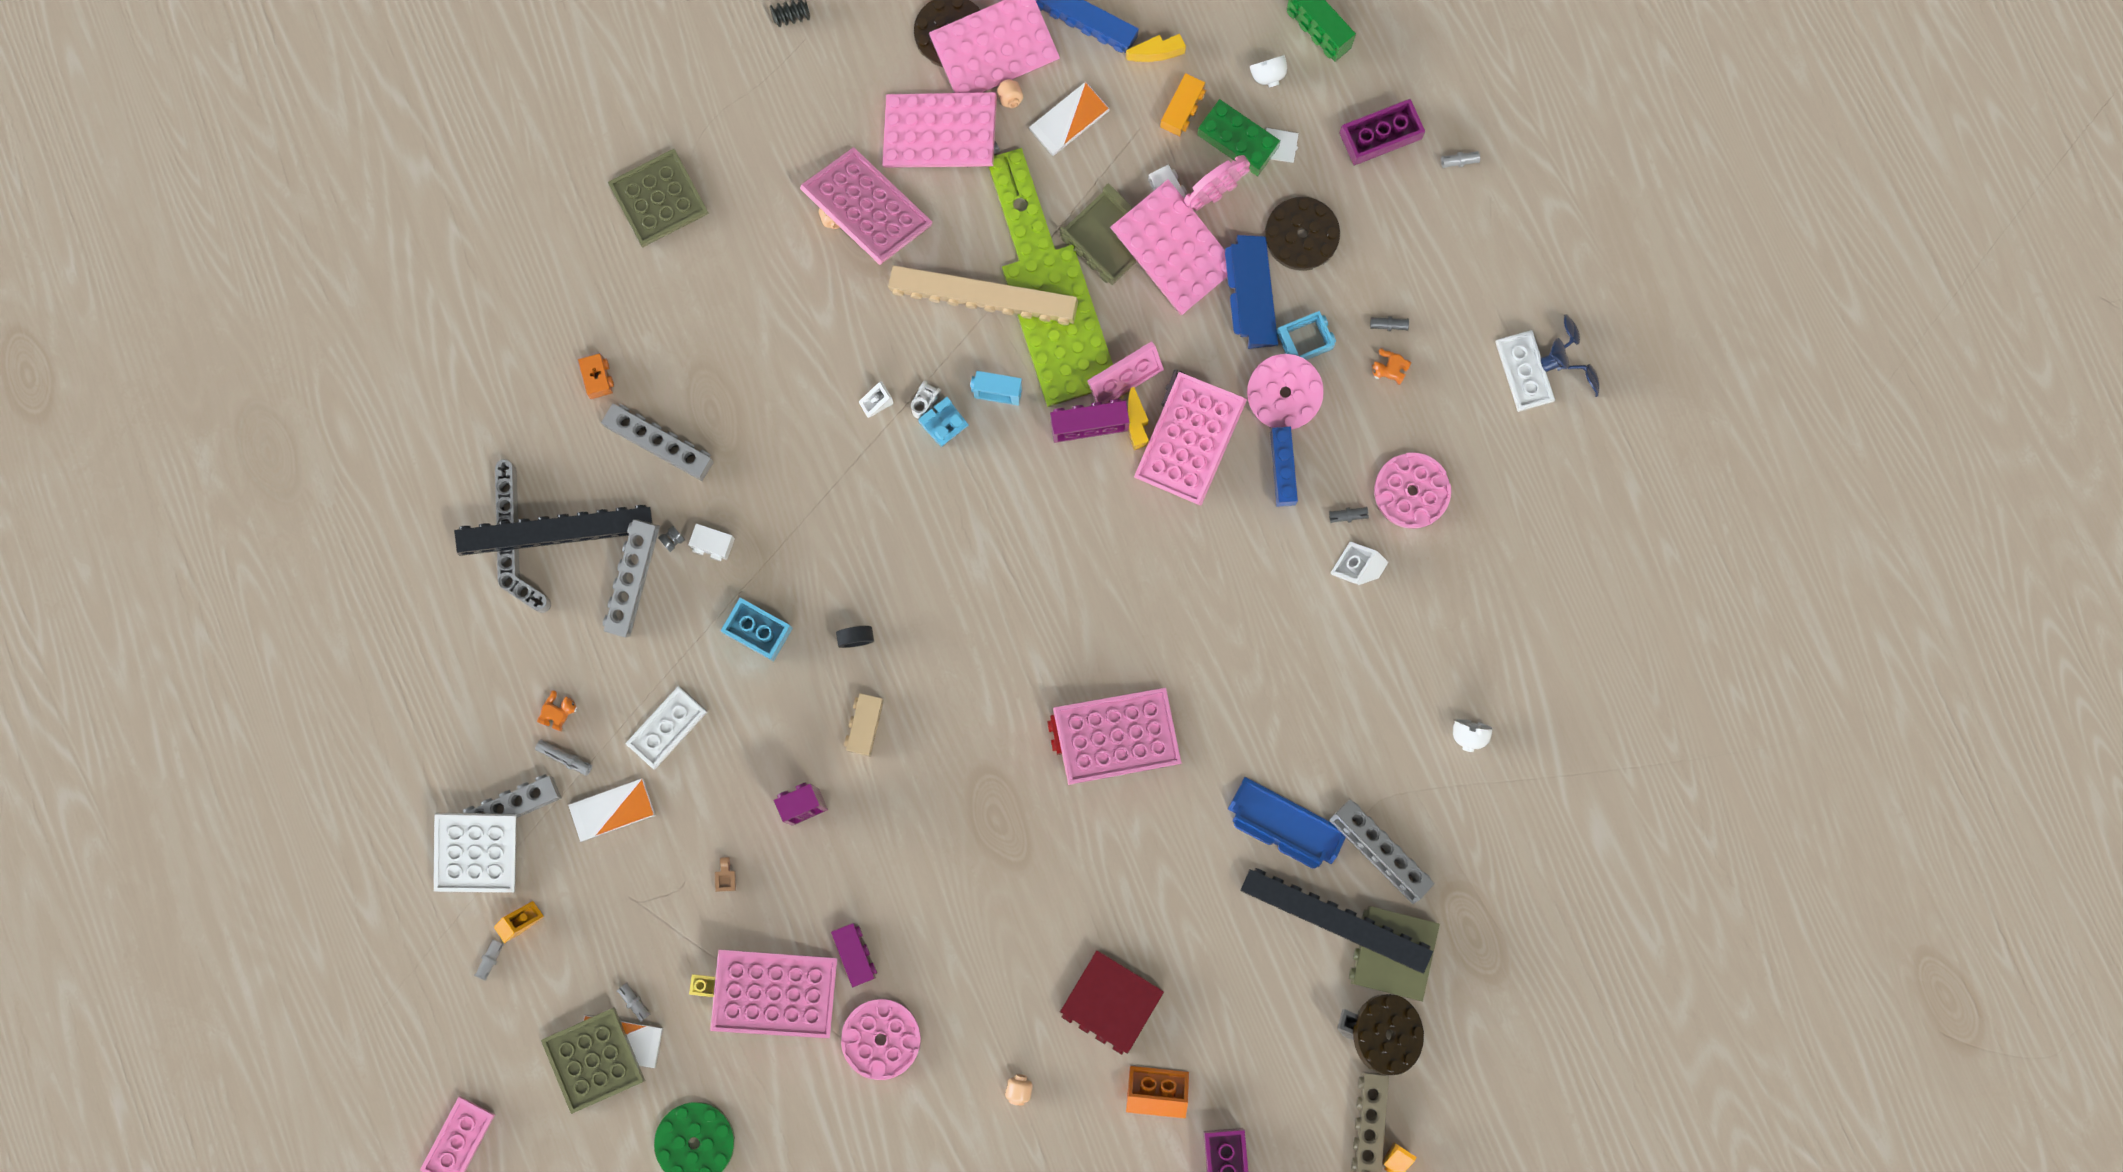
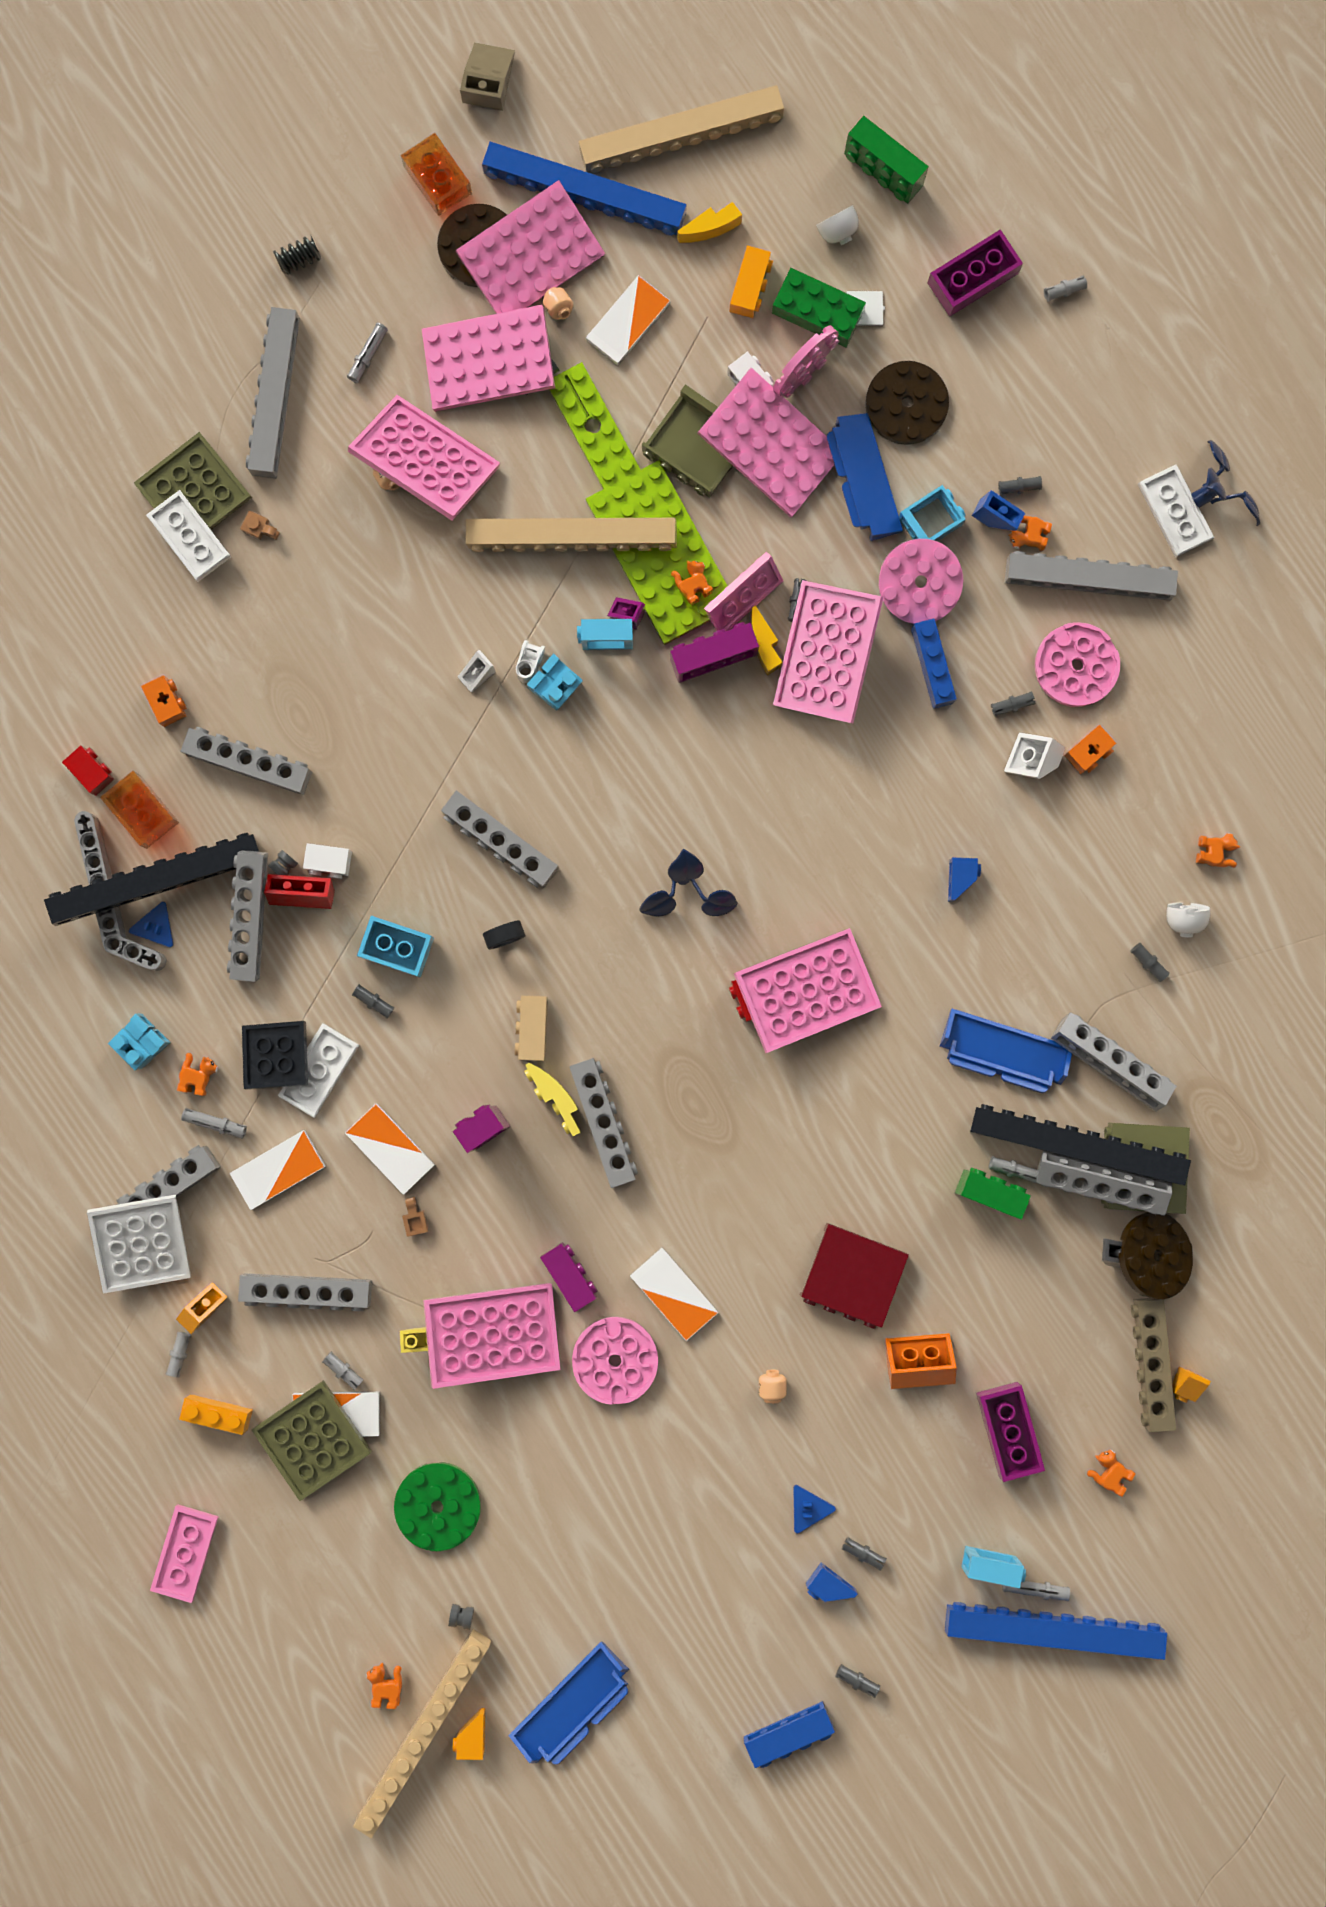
camera: 10 degrees left, 5 degrees up
(512, 1020) = (216, 1414): none -> light orange brick
(516, 424) = (88, 770): none -> red brick
(521, 675) = (139, 1042): none -> medium azure hips
(547, 572) = (155, 926): none -> blue piece
(554, 467) = (139, 809): none -> clear orange brick
(566, 908) = (250, 1282): none -> light grey brick
(630, 706) = (274, 1055): none -> black plate
(646, 236) = (188, 536): none -> white tile
(681, 565) = (299, 891): none -> red brick
(709, 238) = (257, 526): none -> medium nougat plate
(716, 810) = (390, 1149): none -> tile
(727, 674) = (373, 1001): none -> dark grey pin
(745, 126) = (273, 392): none -> light grey brick
(828, 113) = (362, 360): none -> light grey pin
(838, 513) = (459, 804): none -> light grey brick
(870, 783) = (548, 1089): none -> light yellow slope
(899, 772) = (628, 1171): none -> light grey brick
(945, 989) = (674, 1294): none -> tile
(1020, 369) = (627, 609): none -> magenta slope
(1024, 608) = (682, 871): none -> dark blue plant
(1083, 358) = (693, 584): none -> orange animal
(1251, 949) = (993, 1192): none -> green brick
(1275, 659) = (962, 875): none -> blue slope
(1281, 936) = (1011, 1169): none -> light grey pin
(1347, 949) = (1115, 1180): none -> light grey brick
(1365, 344) = (998, 512): none -> blue slope
(1418, 560) = (1079, 755): none -> orange brick
(1431, 768) = (1149, 962): none -> dark grey pin
(1438, 415) = (1091, 576): none -> light grey brick
(1507, 676) = (1215, 850): none -> orange animal

